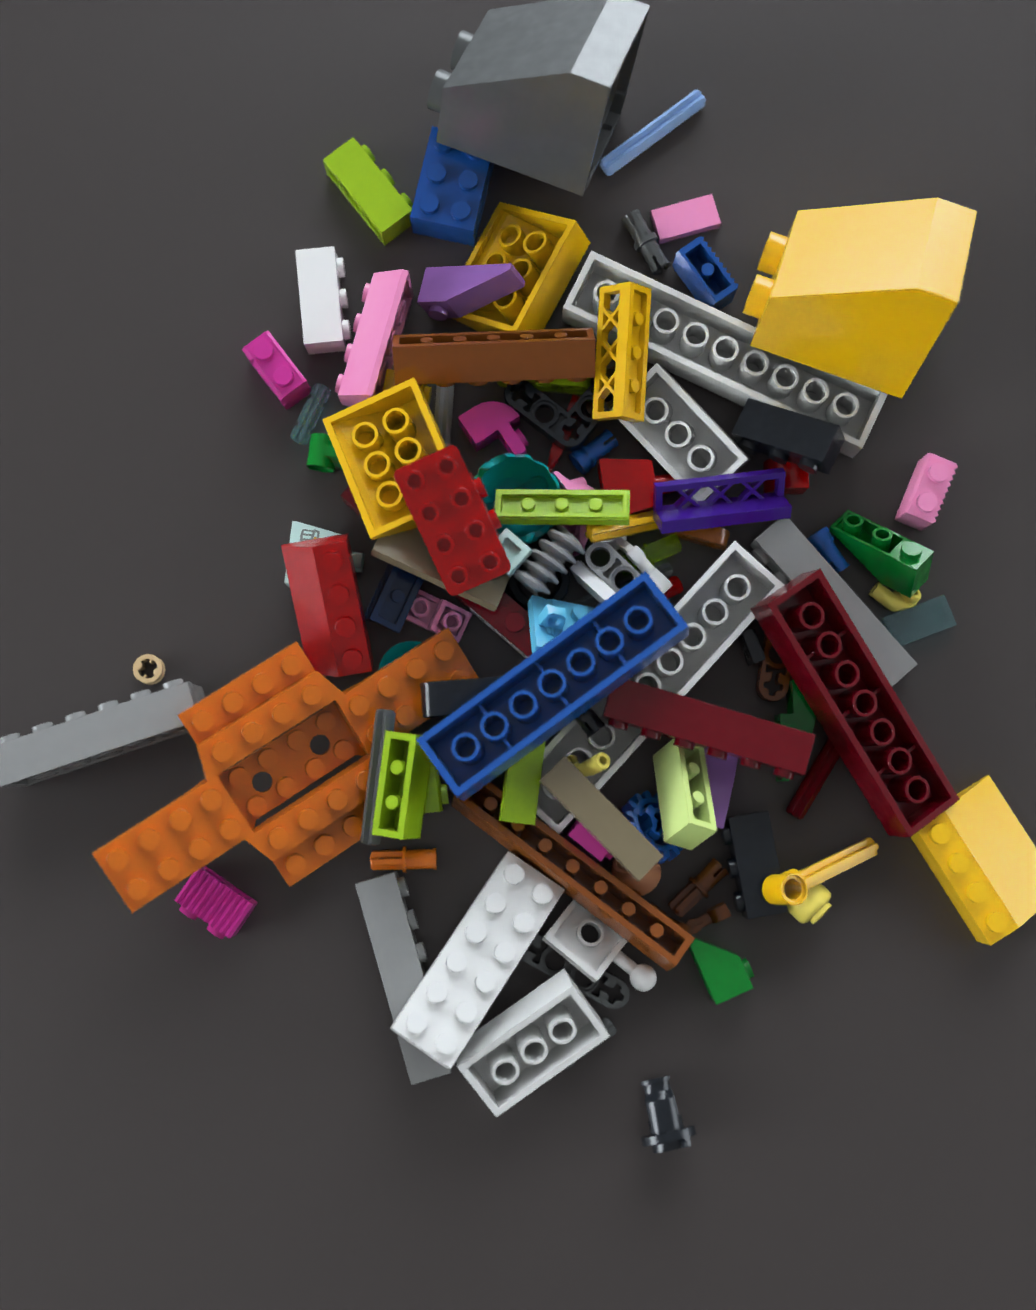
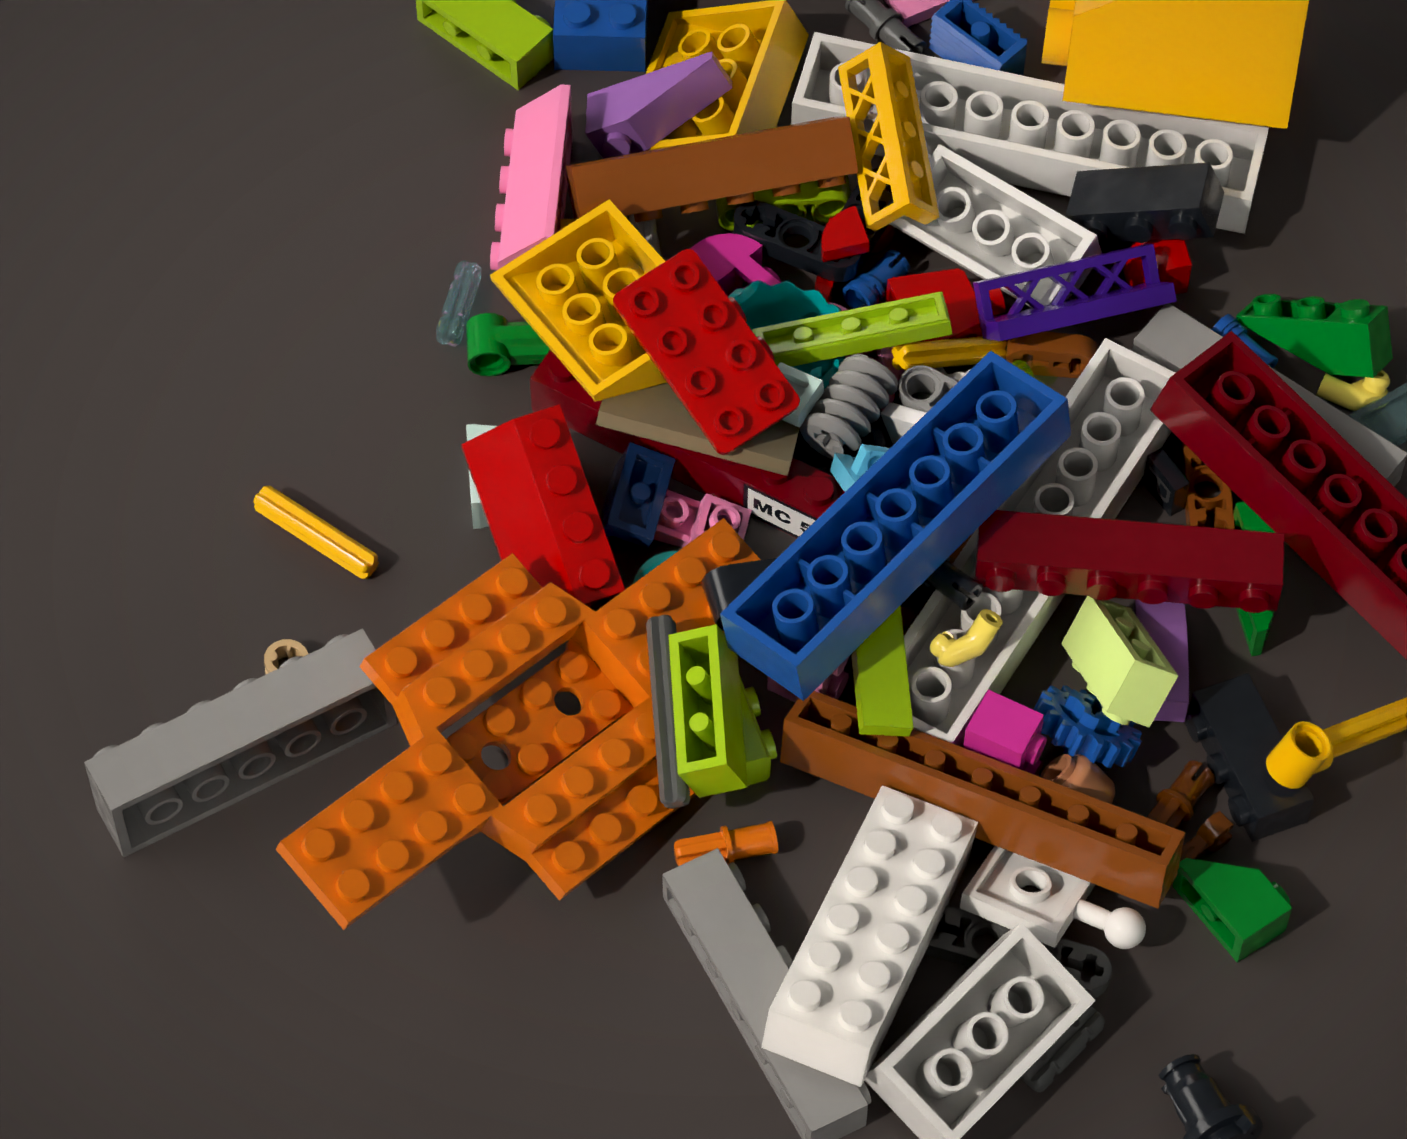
camera: 10 degrees left, 25 degrees down
(184, 574) = (316, 532): none -> yellow axle
(215, 902) = (453, 948): dark pink brick -> none
(277, 369) = (401, 252): dark pink brick -> none
(322, 300) = (448, 161): white brick -> none
(575, 423) = (844, 236): none -> red tile
(601, 819) = (1008, 694): dark tan tile -> none
(813, 781) = (1306, 637): dark red axle -> none
(813, 907) = (1343, 791): light yellow head -> none
(926, 491) = (1358, 249): bright pink brick -> none

